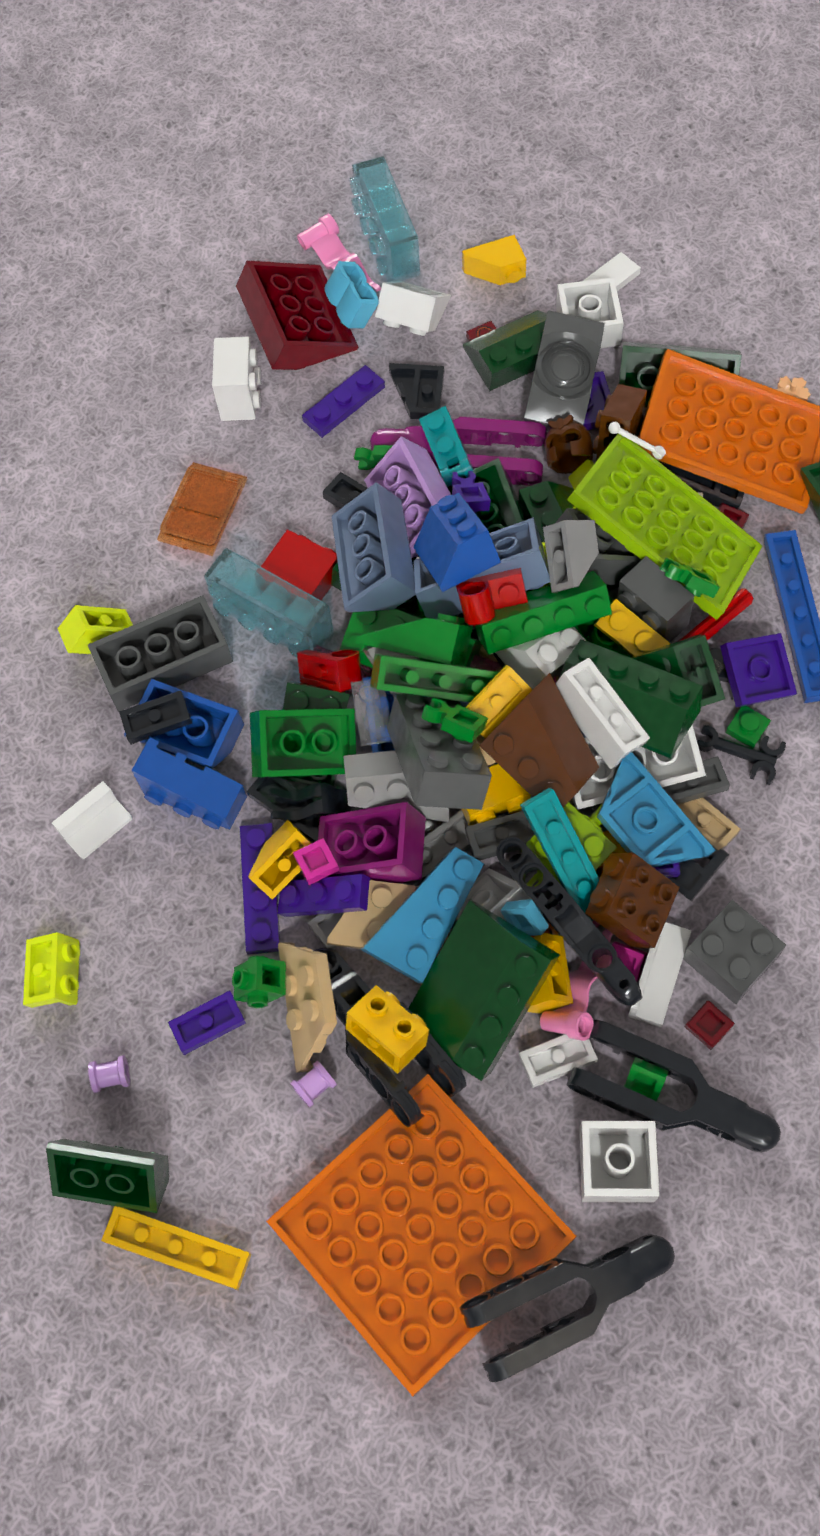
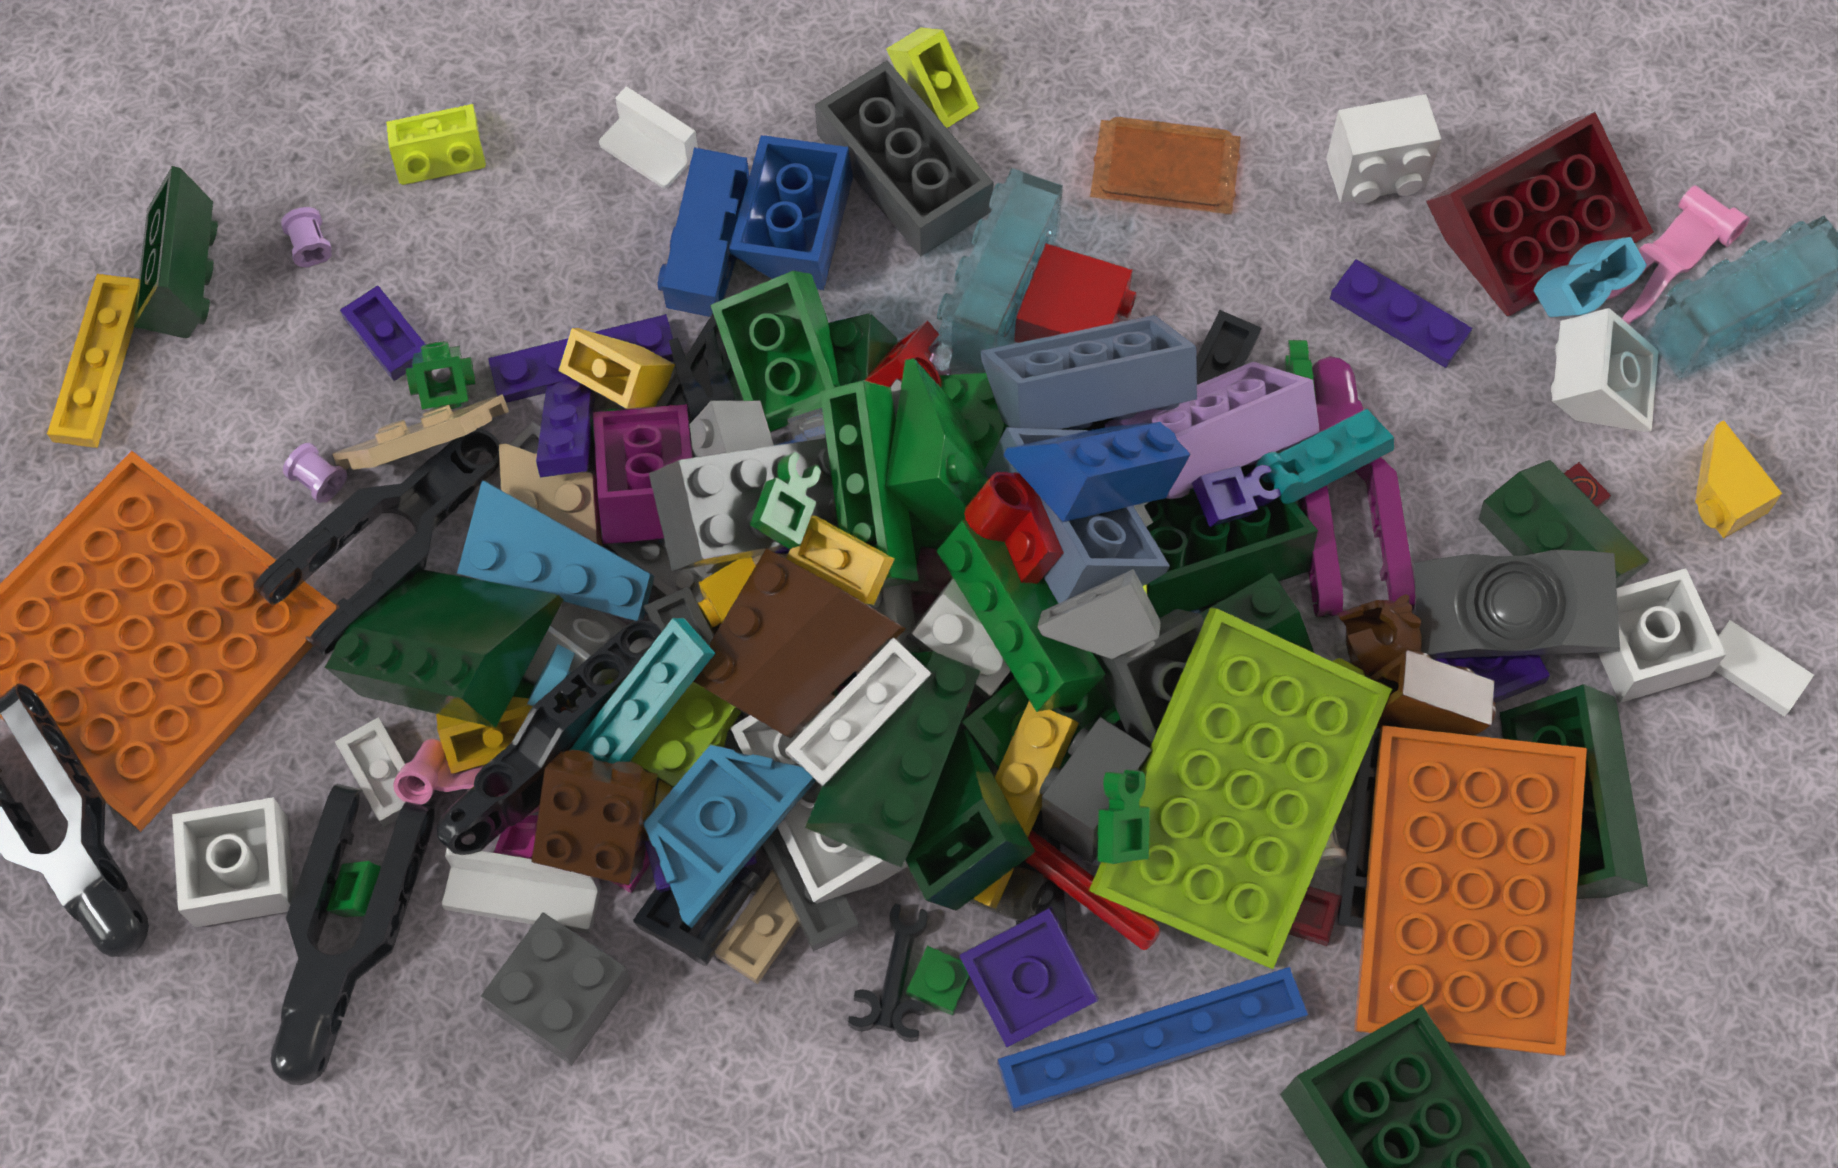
camera: 75 degrees right, 0 degrees up
(155, 717) = (782, 161): black plate -> none
(316, 861) = (603, 402): dark pink plate -> none
(387, 1028) = (372, 529): yellow brick -> none
(418, 387) = (1446, 414): black wing -> none
(658, 451) = (1376, 759): white hinge -> none
(709, 1025) = (452, 973): dark red tile -> none
(794, 388) = (1602, 993): light nougat plant -> none

